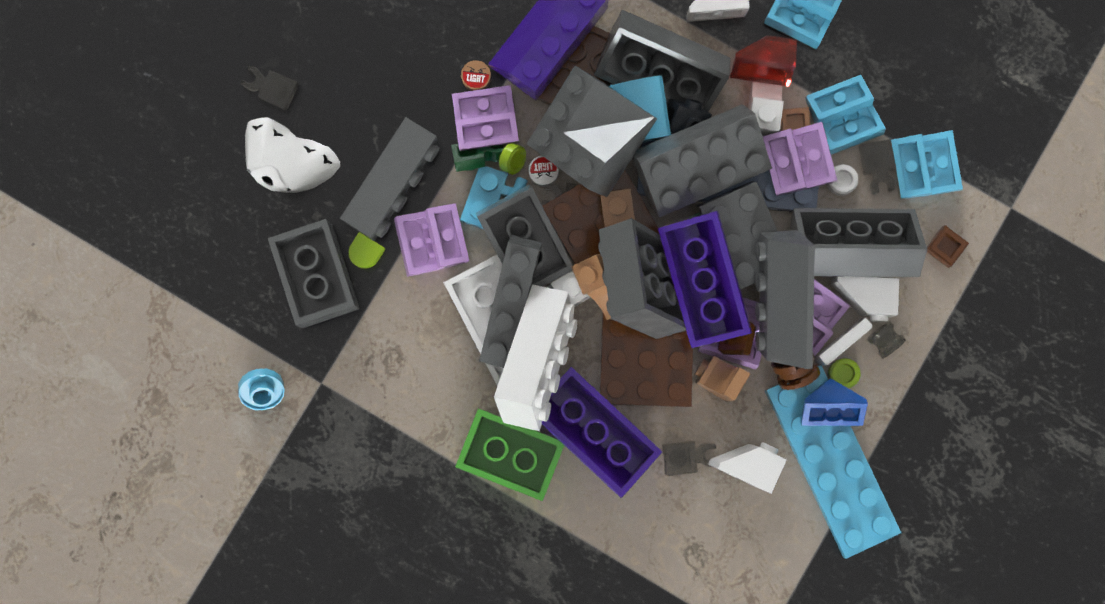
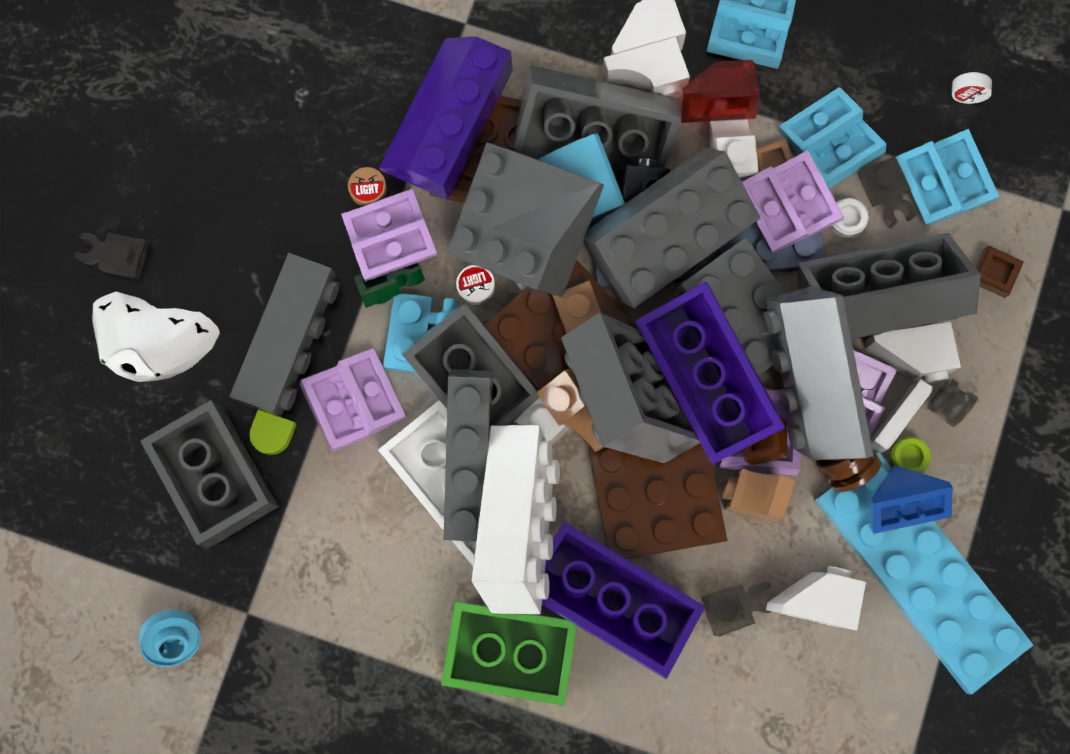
camera: 10 degrees left, 5 degrees down
(512, 158) = (433, 277): lime tile -> none
(718, 29) = (651, 68): none -> white arch
(963, 98) = (971, 88): none -> white tile

